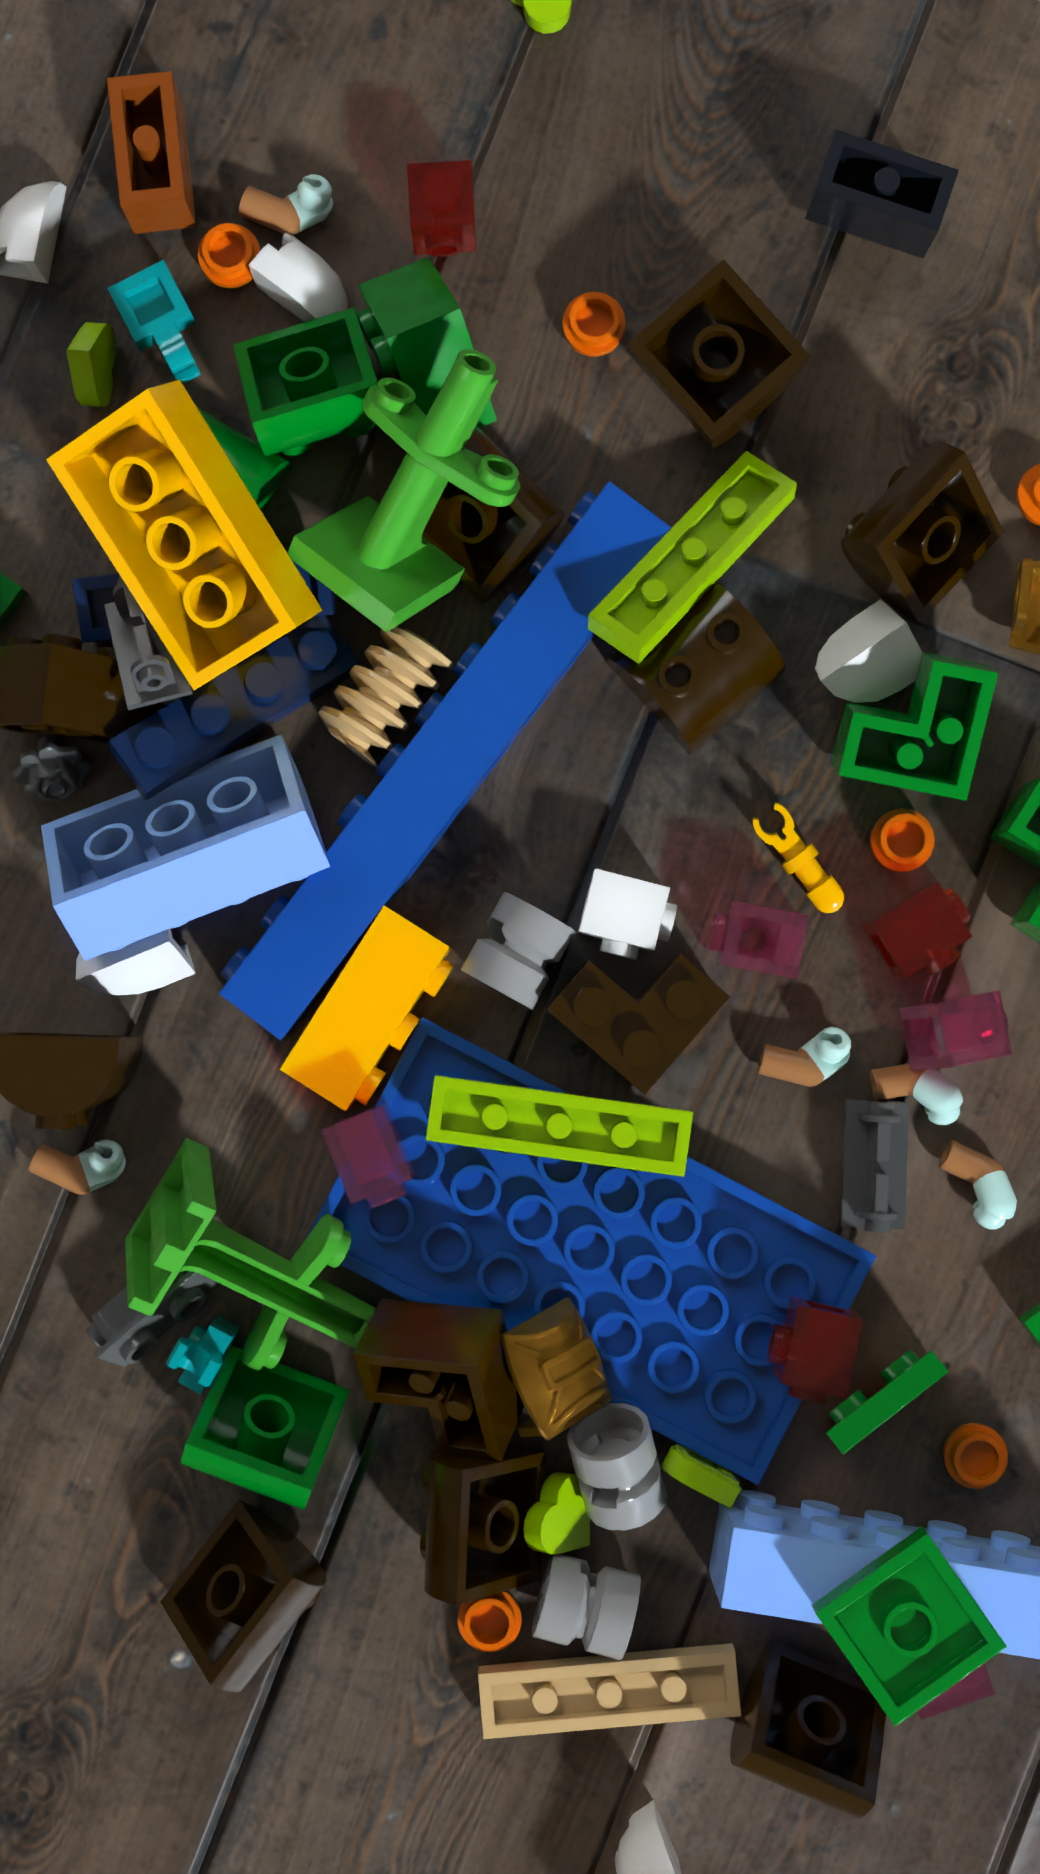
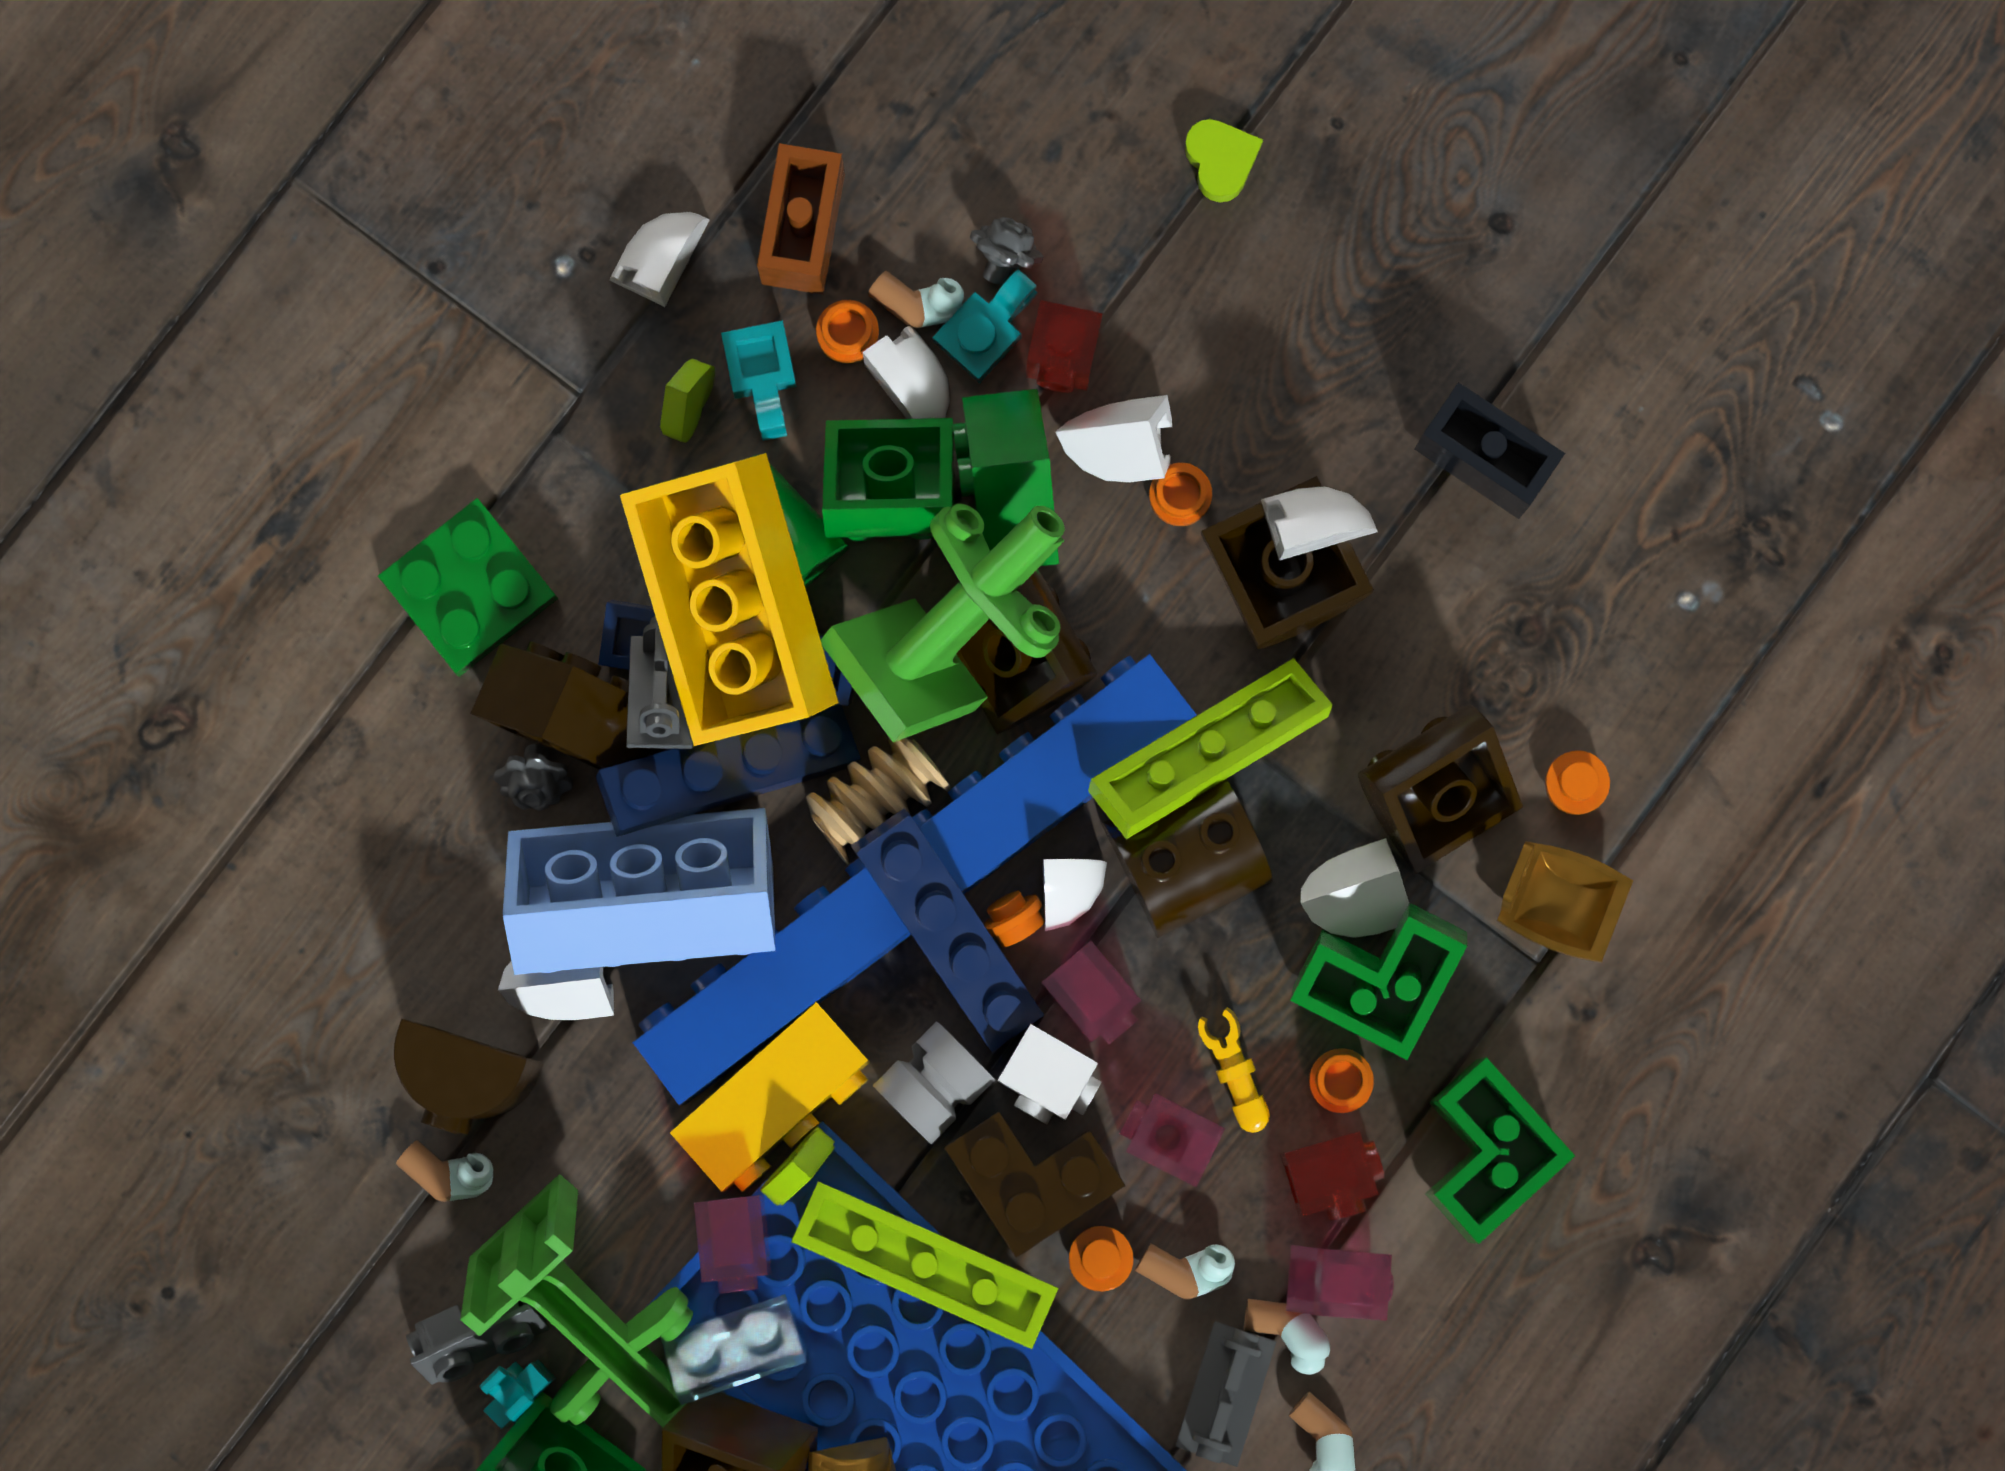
camera: 20 degrees right, 5 degrees down
(359, 128) = (1006, 247): none -> dark grey plant
(359, 219) = (982, 332): none -> teal plate
(400, 1257) = (733, 1349): none -> clear light blue plate
(412, 1067) = (798, 1167): none -> lime tile
(488, 799) = (947, 929): none -> dark blue plate
(522, 287) = (1120, 440): none -> white brick
(549, 773) = (1014, 918): none -> orange plate
(594, 729) = (1070, 889): none -> white brick
(645, 825) = (1092, 995): none -> clear pink brick
(722, 1071) = (1101, 1258): none -> orange plate
(734, 301) = (1314, 519): none -> white brick

